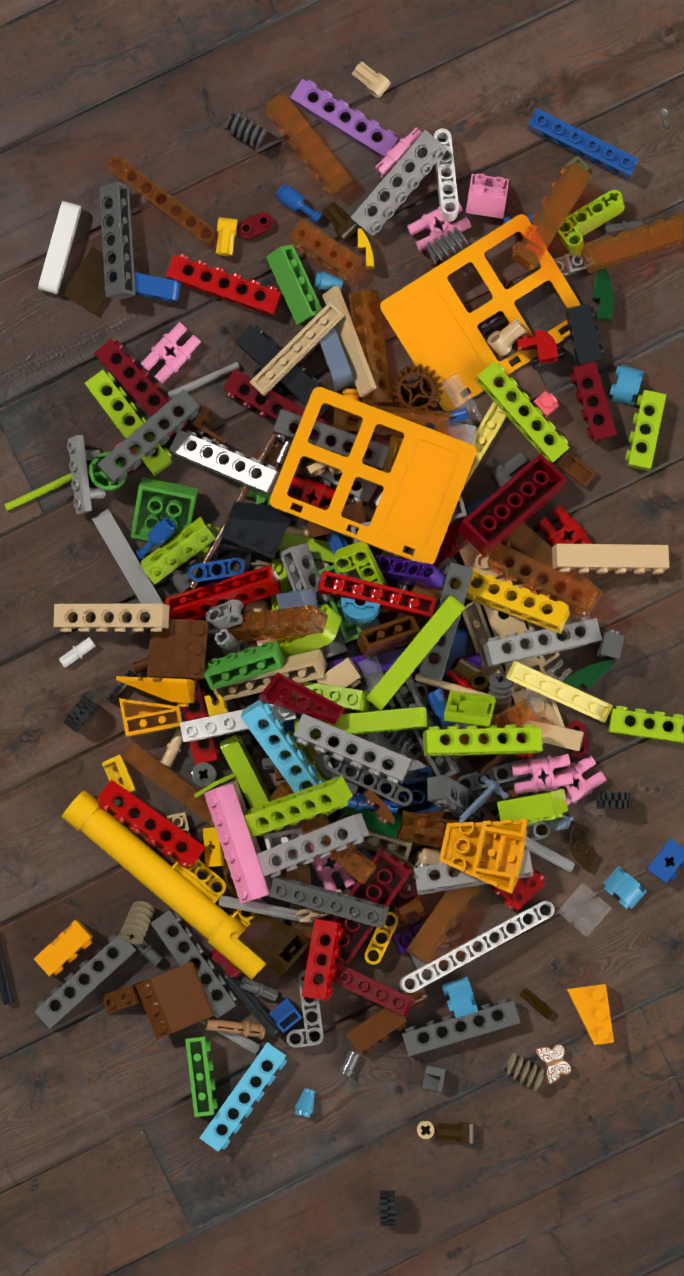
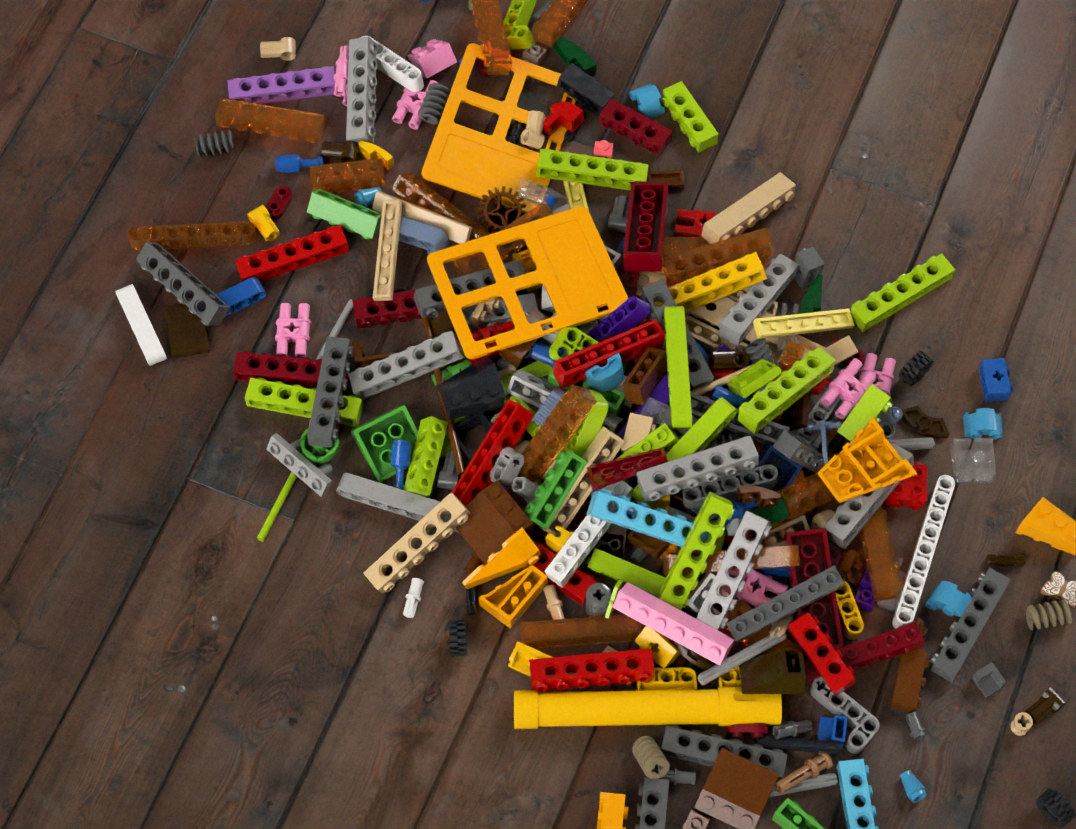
camera: 45 degrees left, 20 degrees down
(224, 566) = (465, 449): blue beam -> none
(264, 350) = (361, 275): black brick -> none

